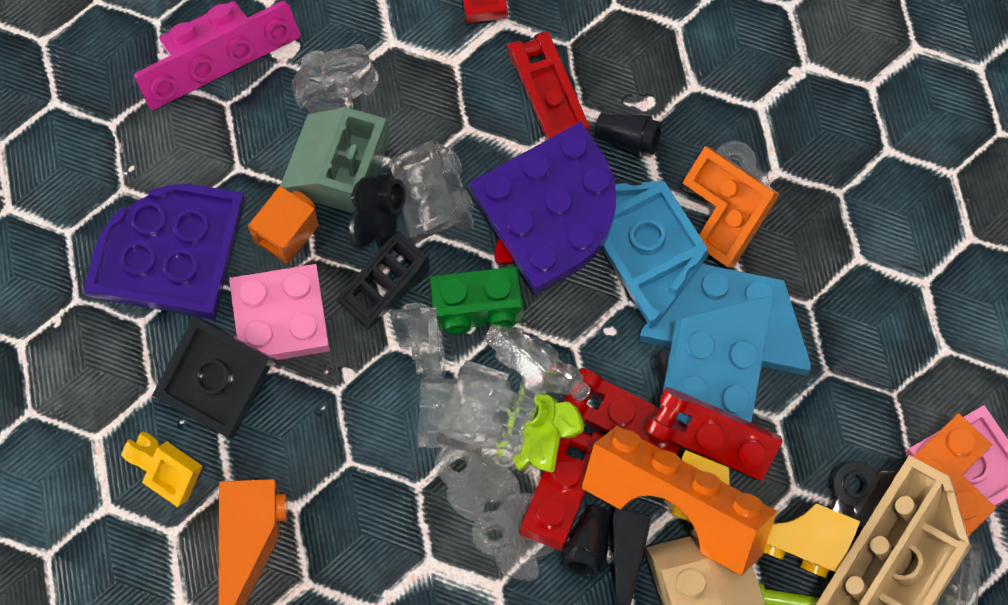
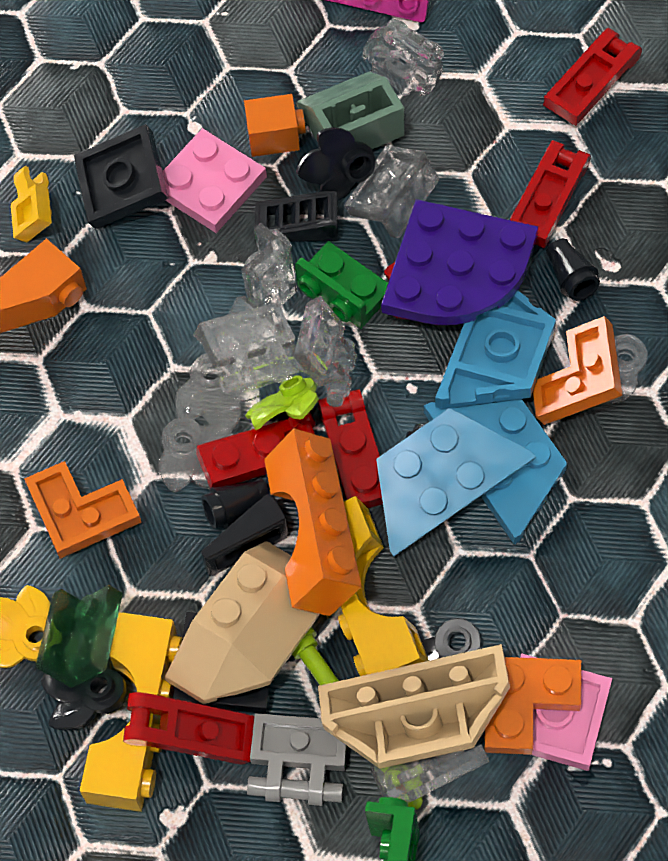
camera: 50 degrees right, 5 degrees down
(168, 250) = (186, 79): dark purple plate -> none
(715, 434) = (391, 507): red plate -> none

